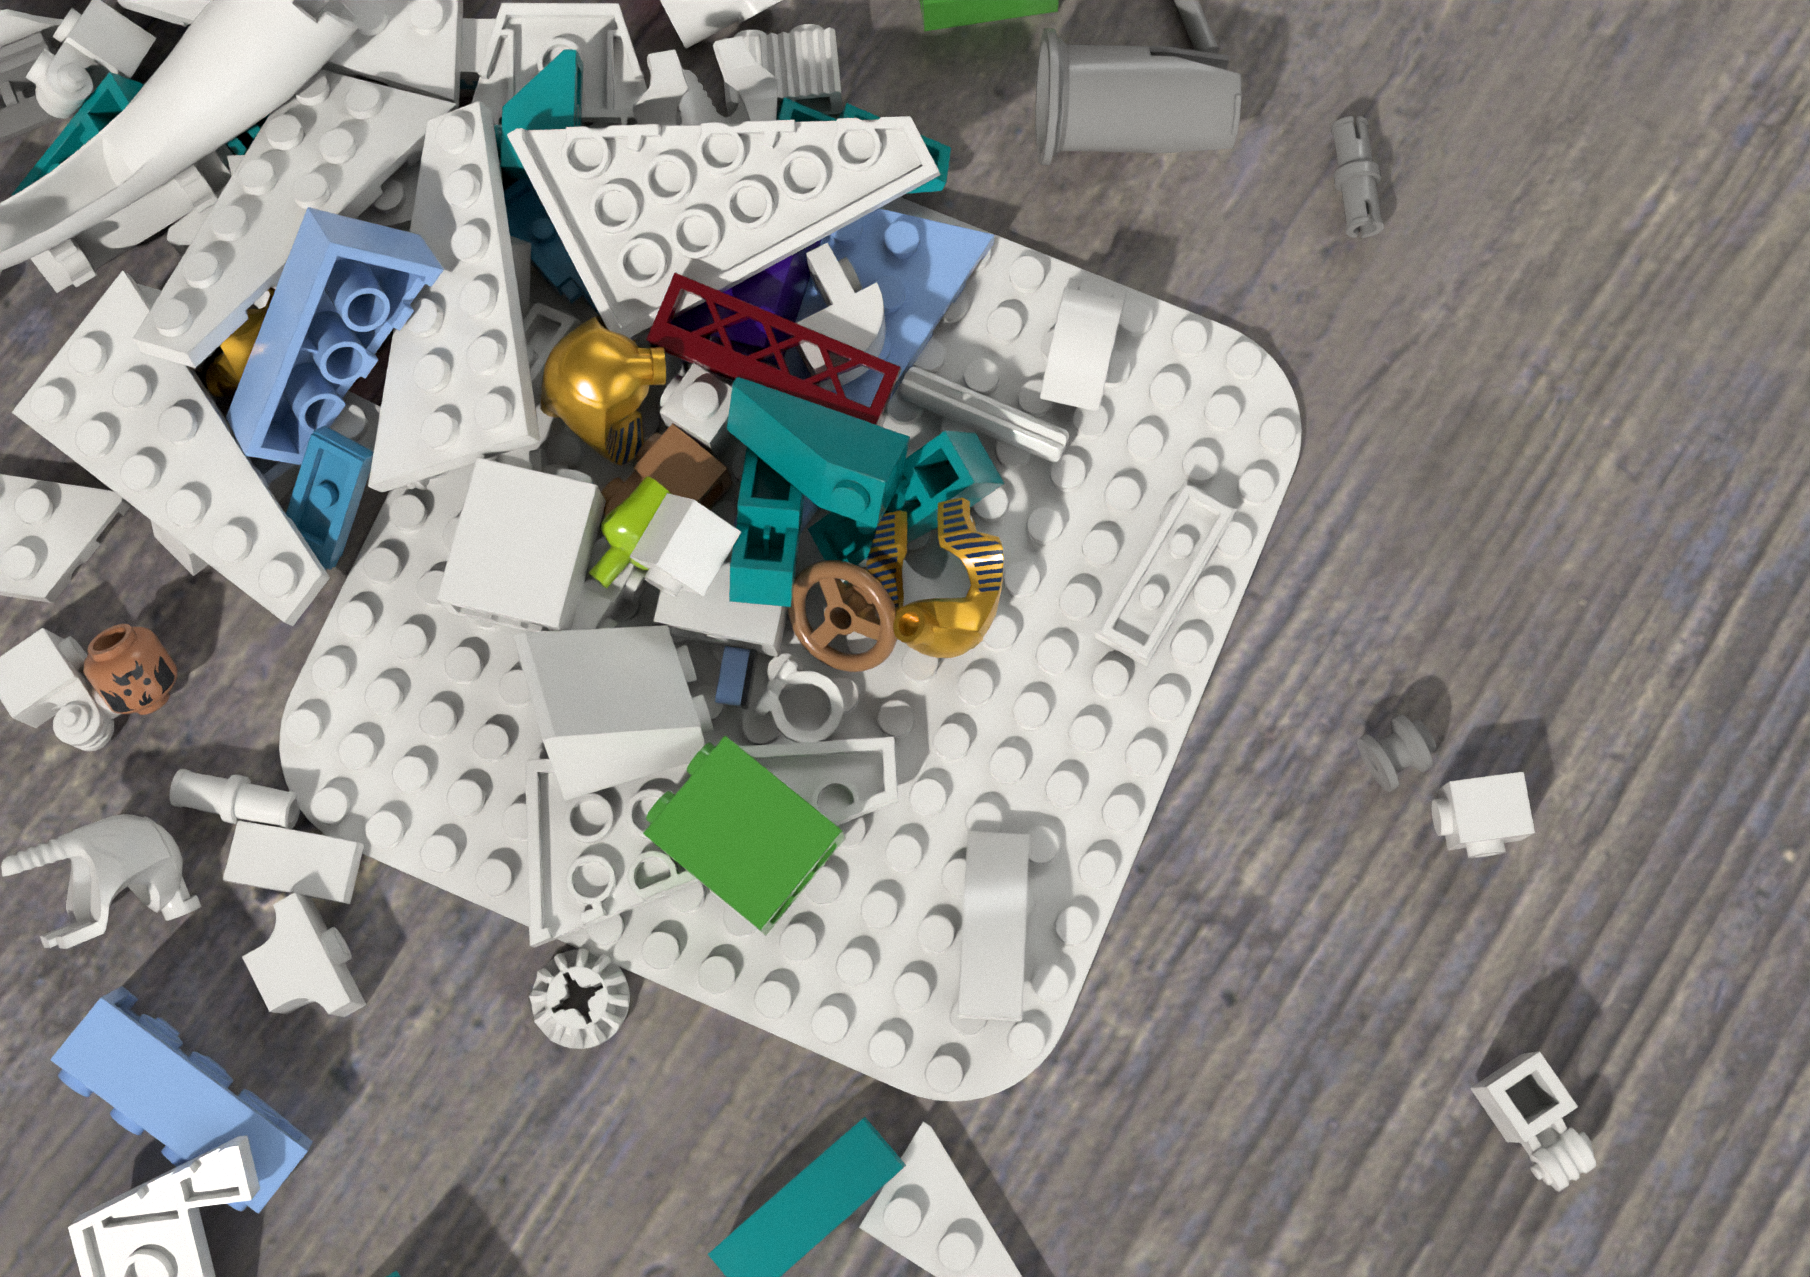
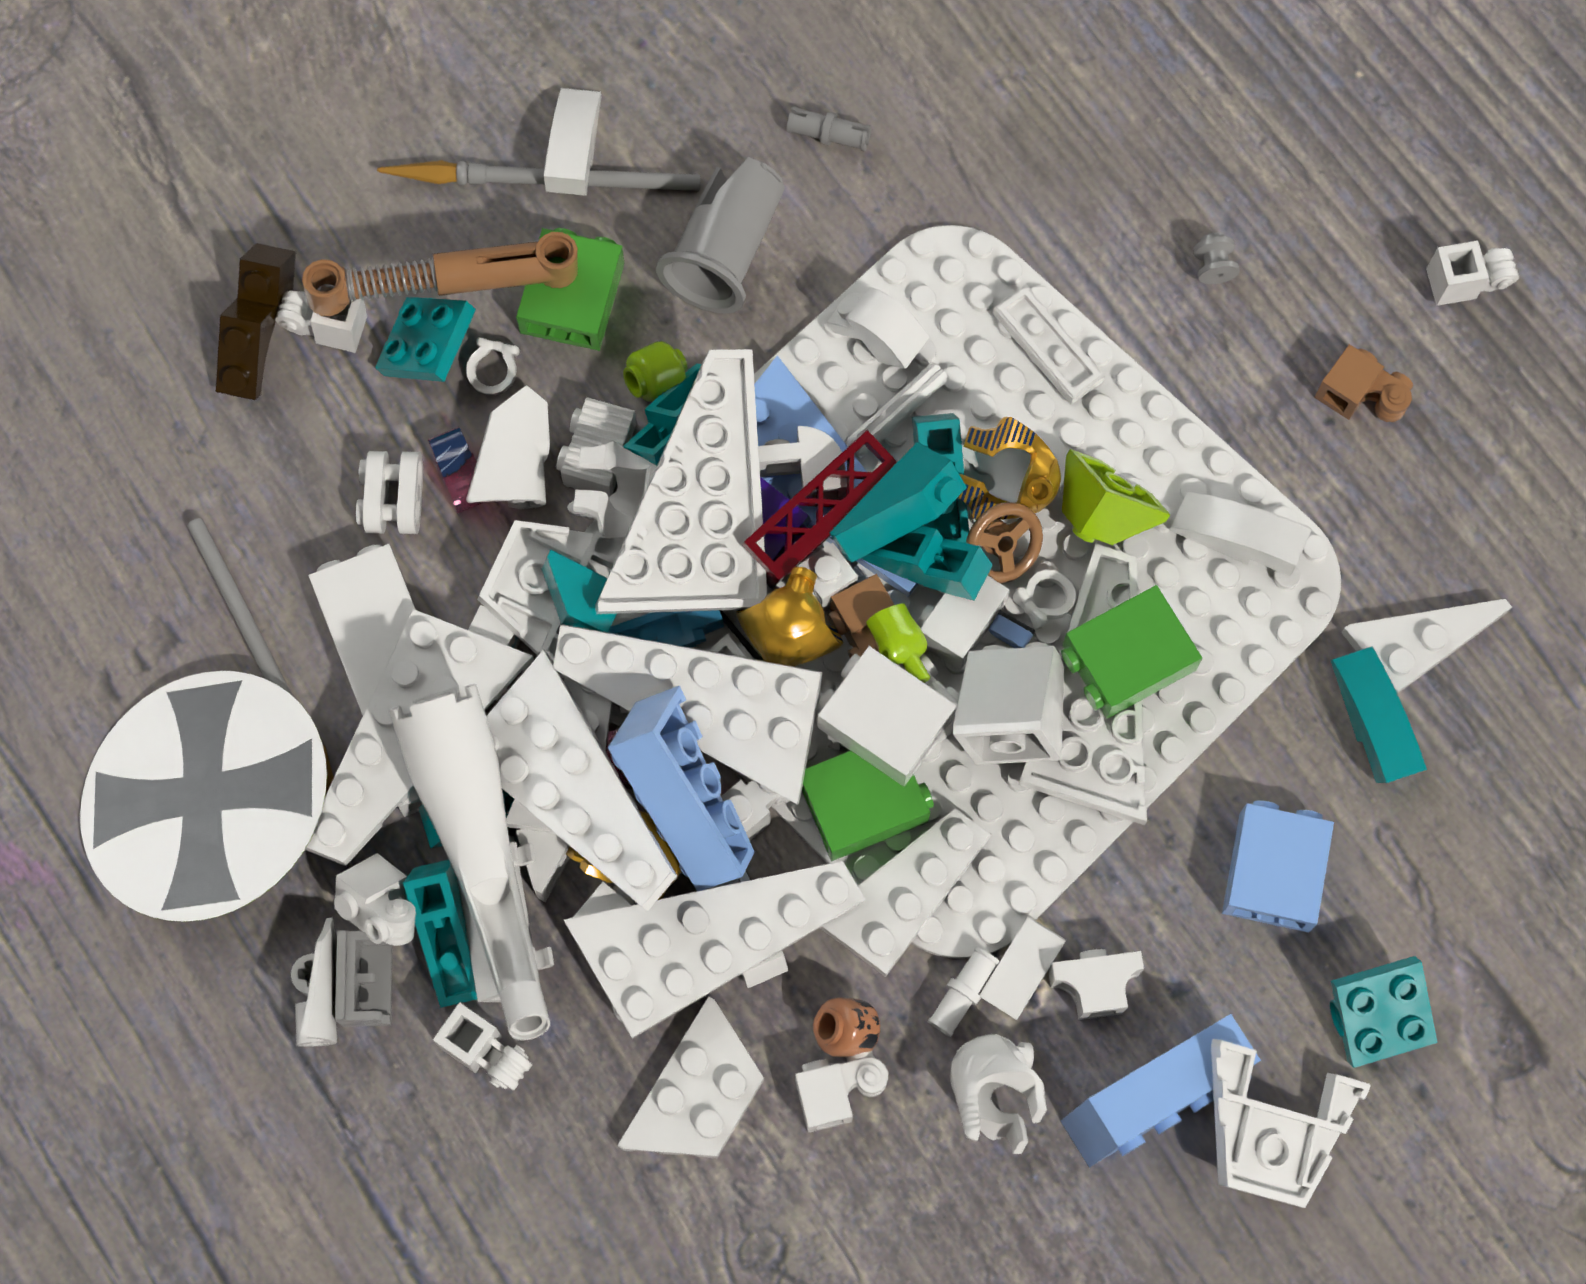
camera: 75 degrees left, 5 degrees down
(329, 492) = (780, 837): dark azure hinge -> none
(336, 680) = (908, 891): none -> white wing
(401, 567) = (861, 805): none -> bright green brick
(545, 1146) = (1278, 866): none -> light blue brick
(607, 1007) = (1172, 828): white gear -> none
(684, 546) = (930, 610): white brick -> none
(916, 92) = (654, 370): none -> lime head
(959, 728) = (1105, 504): none -> lime slope
(1301, 1012) = (1361, 378): none -> medium nougat brick
(1483, 813) = (1274, 225): white brick -> none

